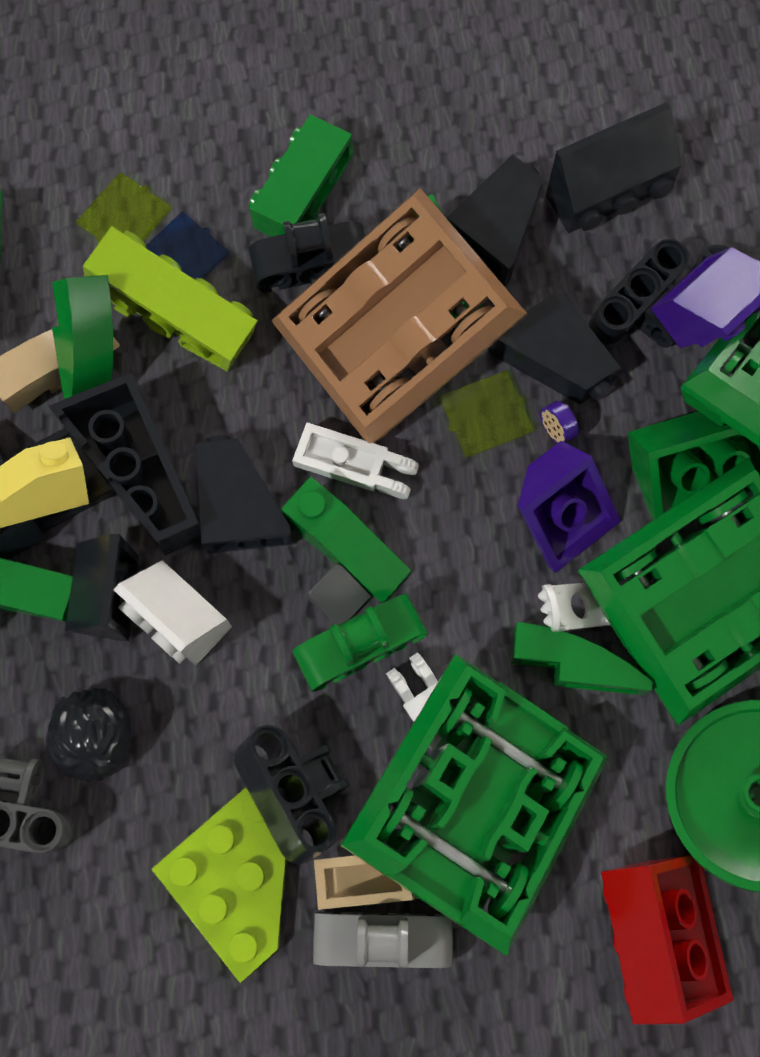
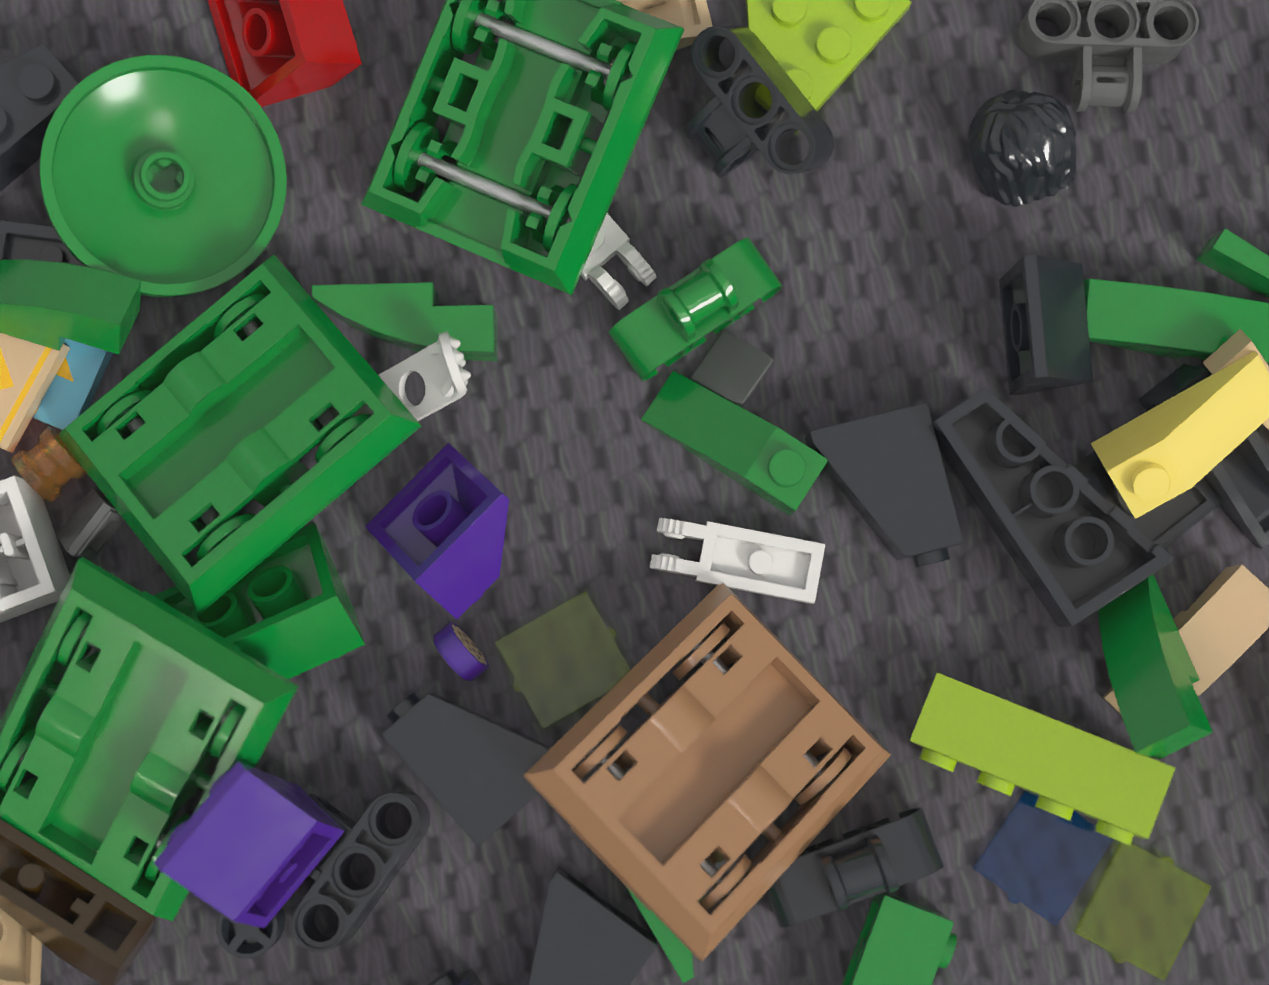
camera: 165 degrees right, 10 degrees up
(183, 618) = (948, 307): white slope -> none

